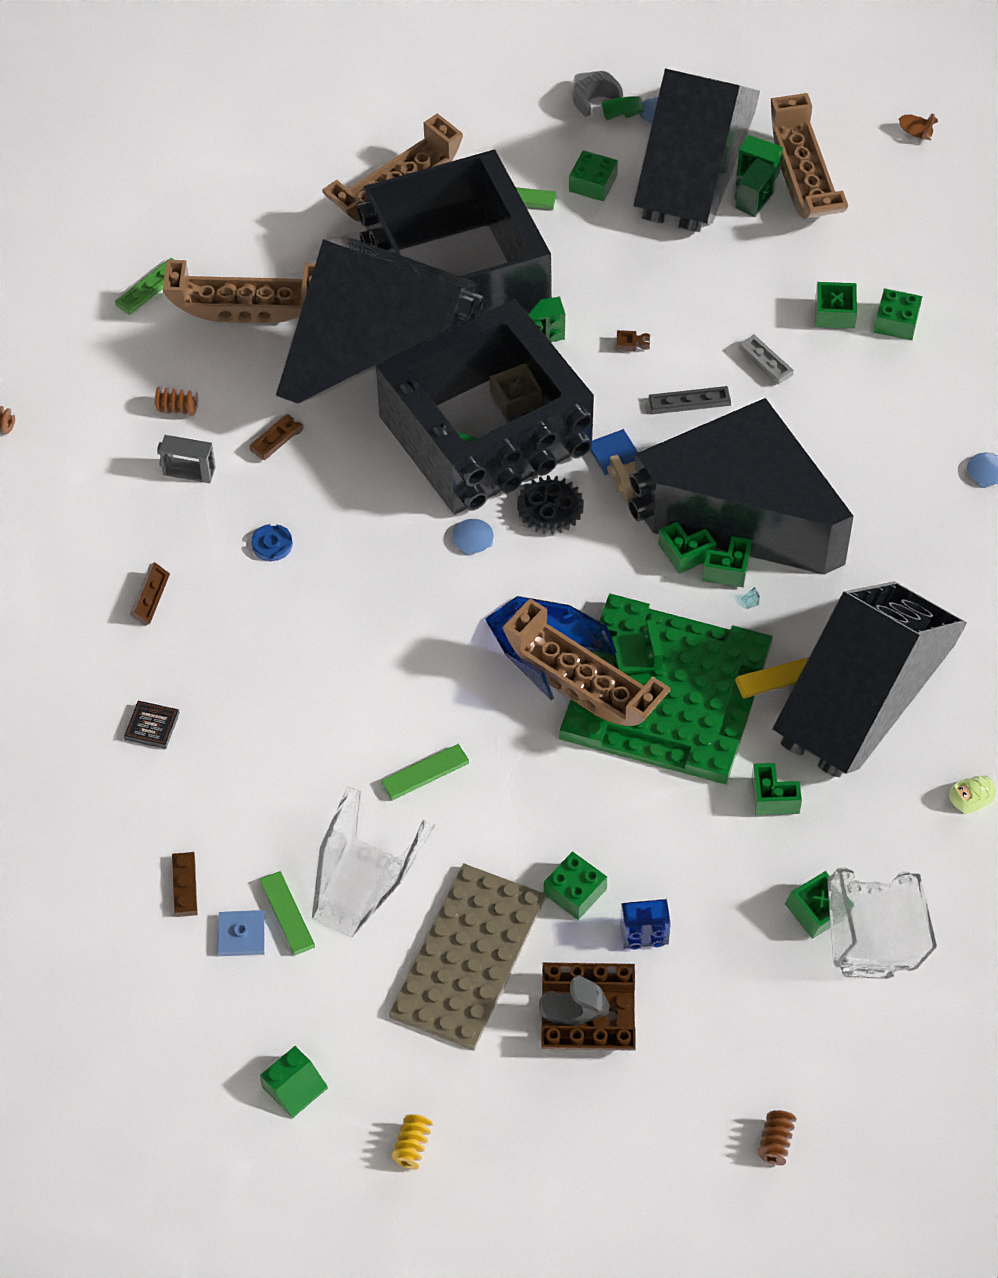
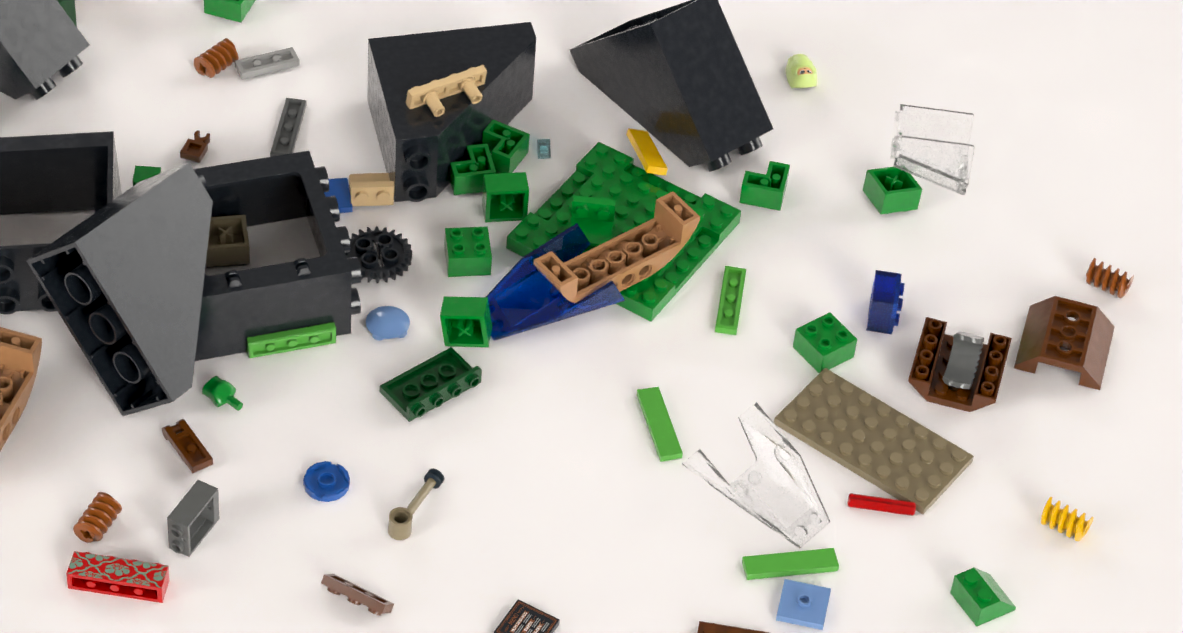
camera: 80 degrees left, 10 degrees down
(120, 432) = (118, 576): none -> red brick
(239, 609) = (401, 518): none -> dark tan piece
(343, 442) = (221, 393): none -> green piece
(385, 976) = (881, 504): none -> red axle
(406, 585) = (430, 384): none -> dark green bracket
(420, 472) = (291, 340): none -> bright green tile
(480, 586) = (466, 321): none -> green brick
(580, 569) = (467, 251): none -> green brick
(611, 797) = (730, 300): none -> bright green tile
(657, 577) = (505, 197): none -> green brick
(662, 1123) = (1085, 338): none -> reddish brown slope
(723, 473) = (453, 84): none -> tan plate
(749, 322) = (216, 58): none -> dark orange piece

